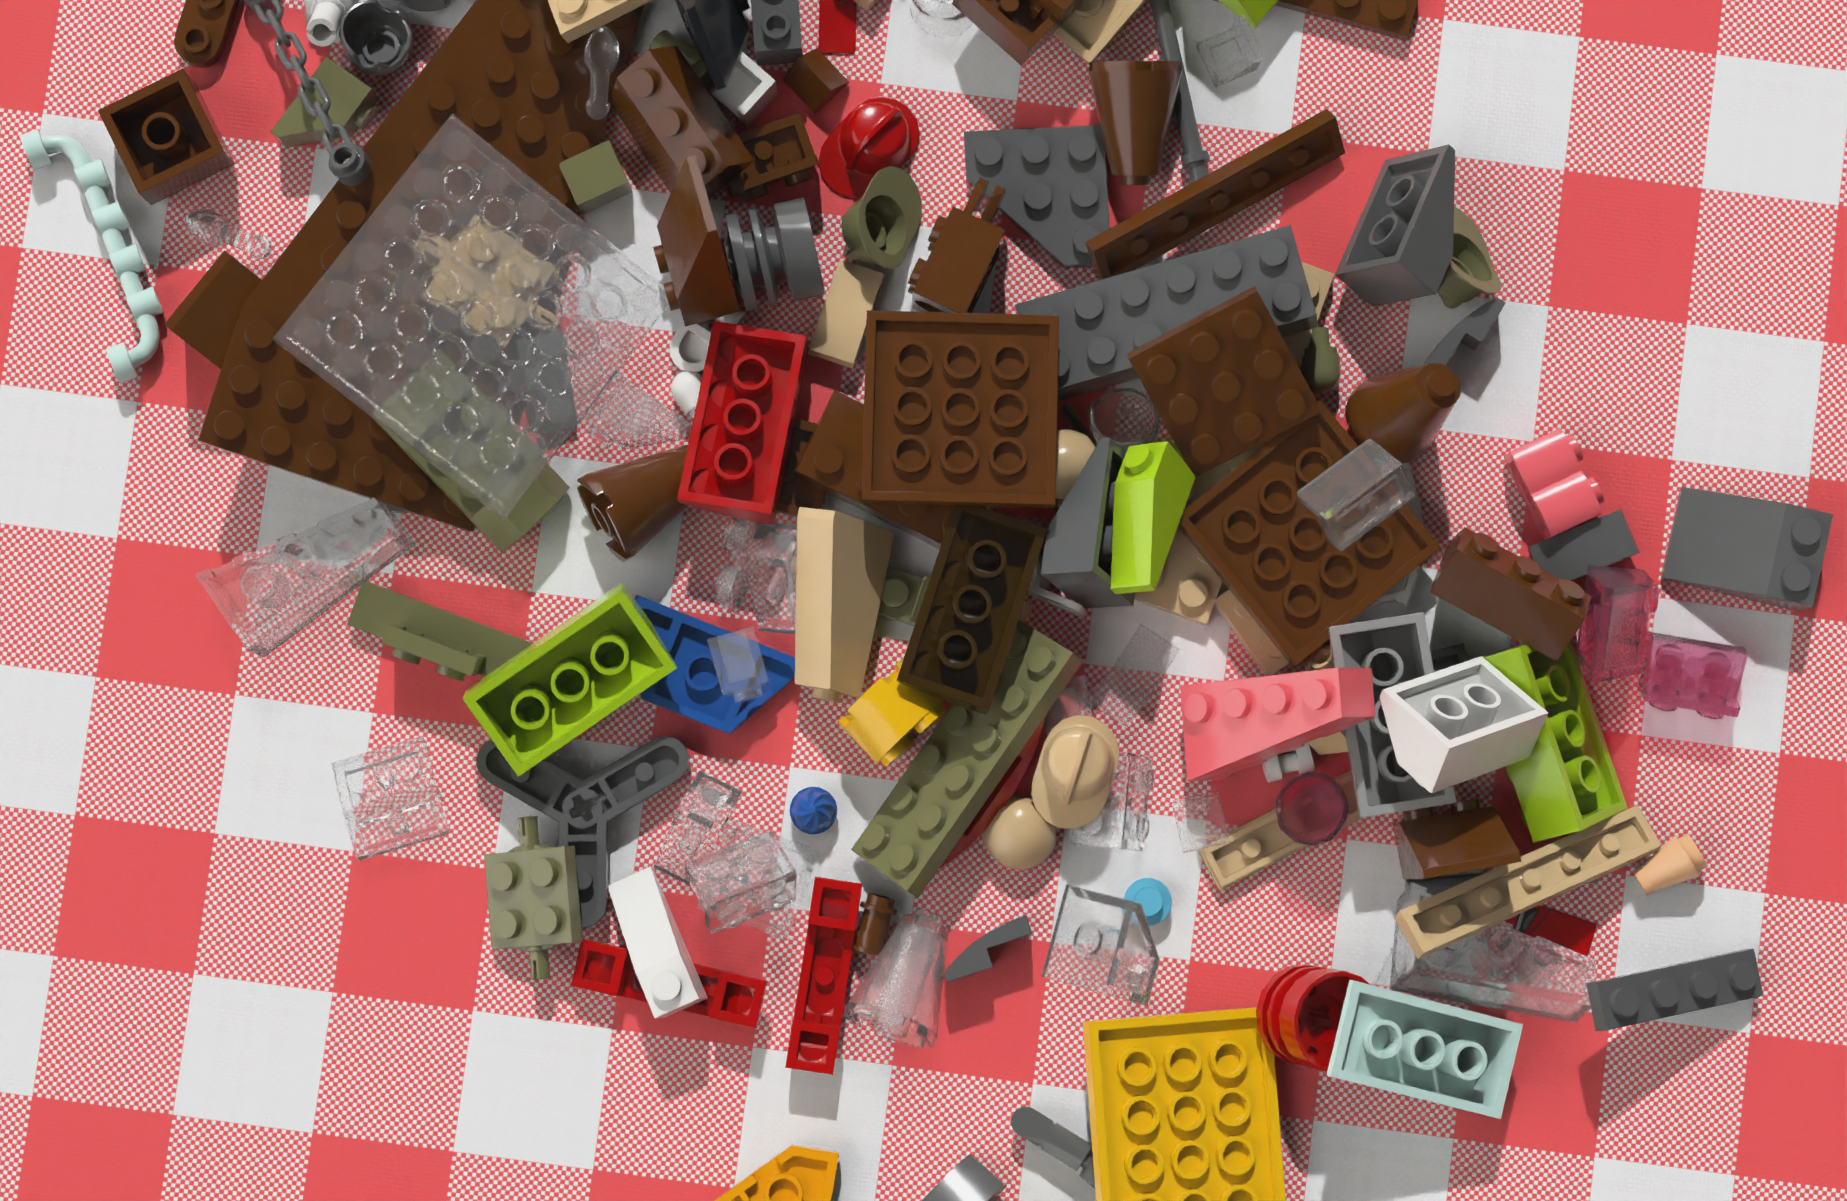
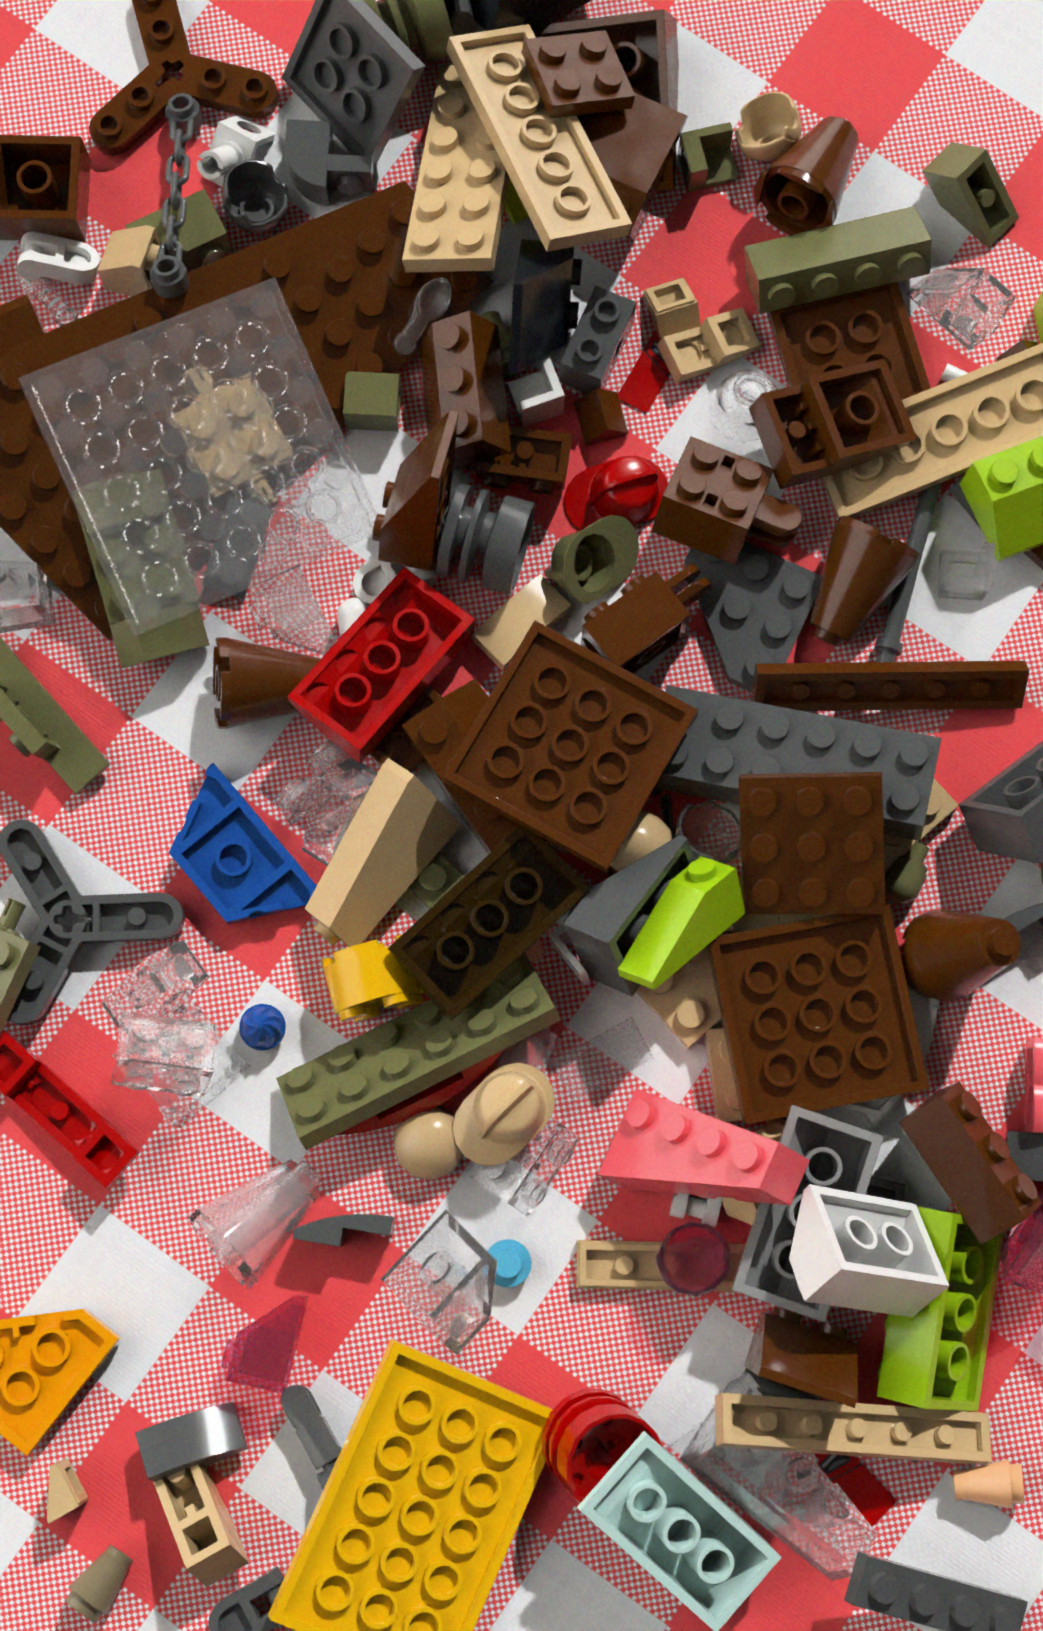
camera: 30 degrees right, 5 degrees down
(235, 193) = (56, 259): none -> white plate
(297, 163) = (129, 260): none -> tan slope
(569, 679) = (114, 802): lime slope -> none
(655, 944) = (61, 1071): white slope -> none
(739, 664) = (265, 866): clear brick -> none
(824, 975) = (191, 1176): red slope -> none
(874, 923) = (261, 1153): reddish brown pin -> none
(973, 106) = (720, 501): none -> reddish brown brick
(974, 1090) = (266, 1348): none -> clear pink slope
(1200, 821) = (591, 1217): clear slope -> none
(1357, 493) = (879, 1002): clear panel -> none

